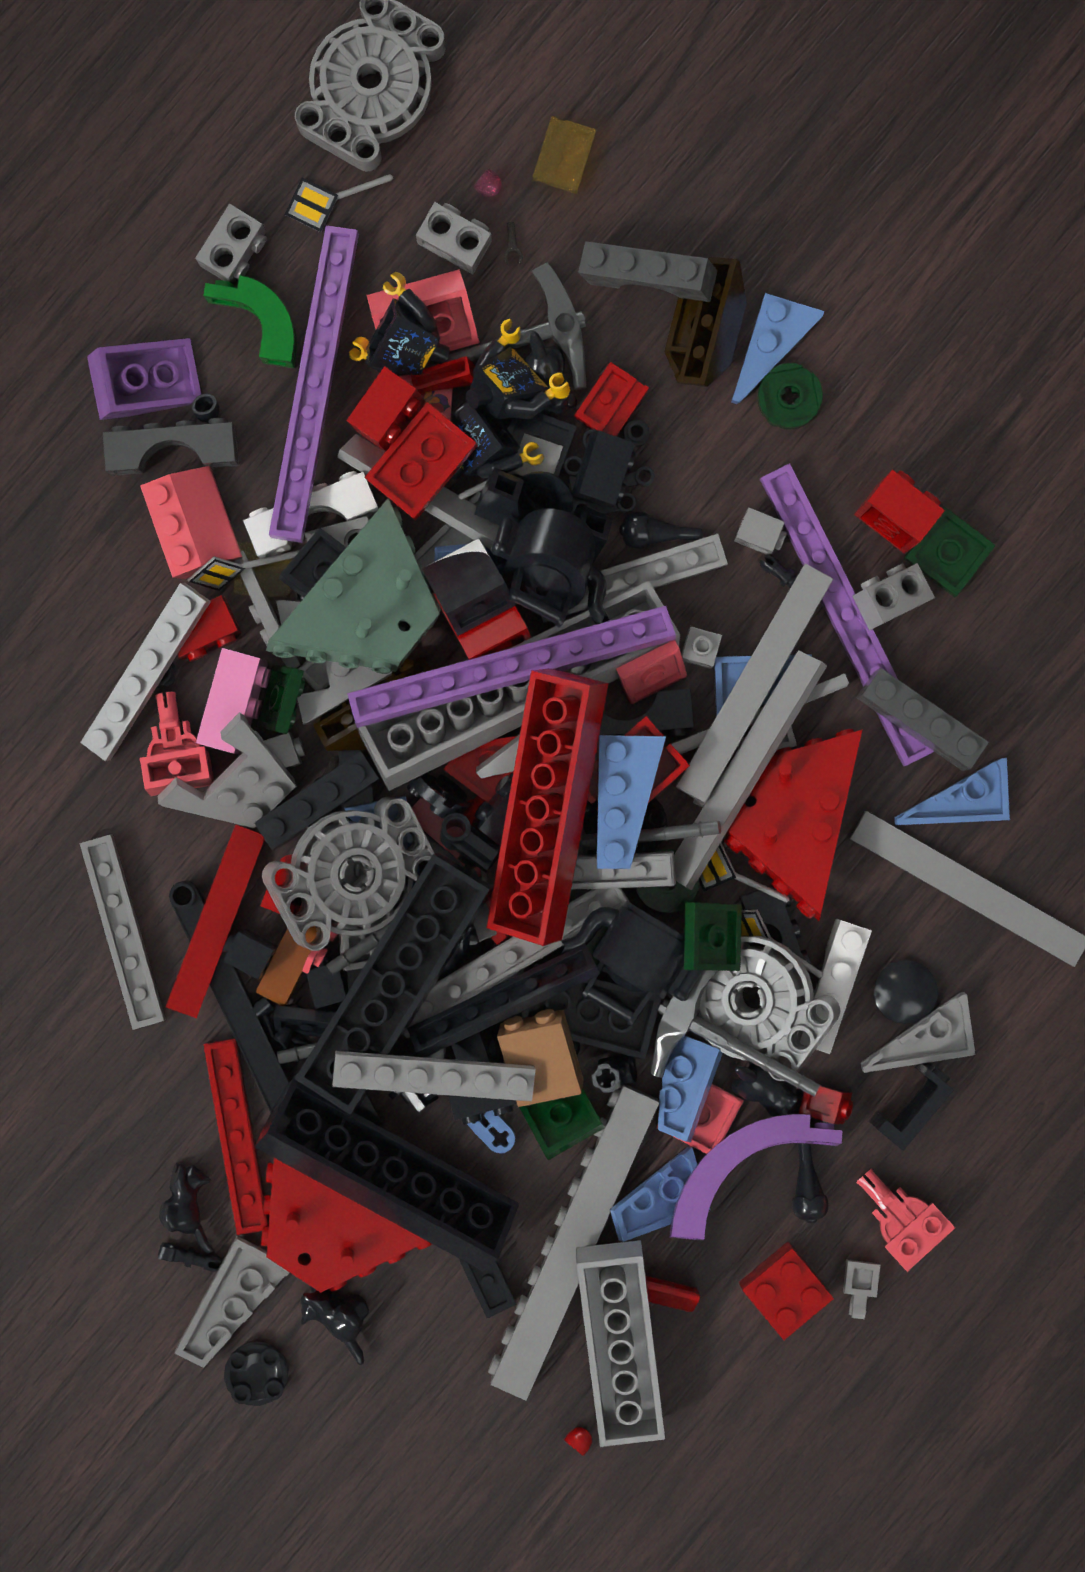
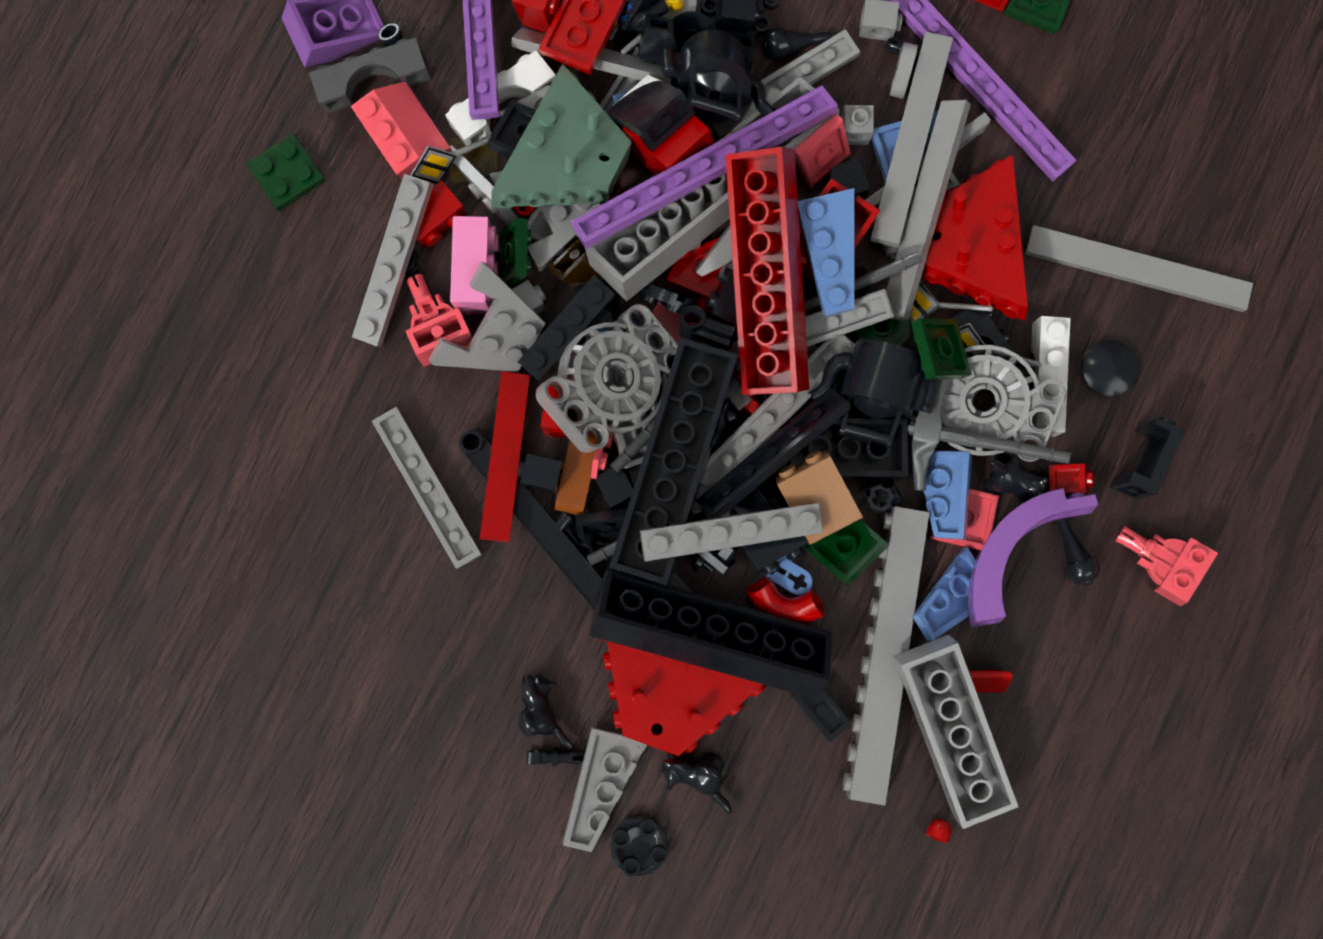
camera: 10 degrees left, 5 degrees down
(50, 534) = (286, 172): none -> dark green plate
(236, 1135) = (569, 640): red tile -> none
(467, 1157) = (769, 600): none -> red cylinder
(769, 599) = (903, 70): none -> light grey beam
(785, 1290) = (1084, 649): red brick -> none
(860, 1281) = (1146, 625): light grey plate -> none
(894, 598) = (1005, 41): light grey brick -> none
(922, 719) = (1062, 132): dark grey brick -> none
(937, 1037) = (1148, 398): light grey wing -> none
(972, 799) = (1121, 192): medium blue wing -> none

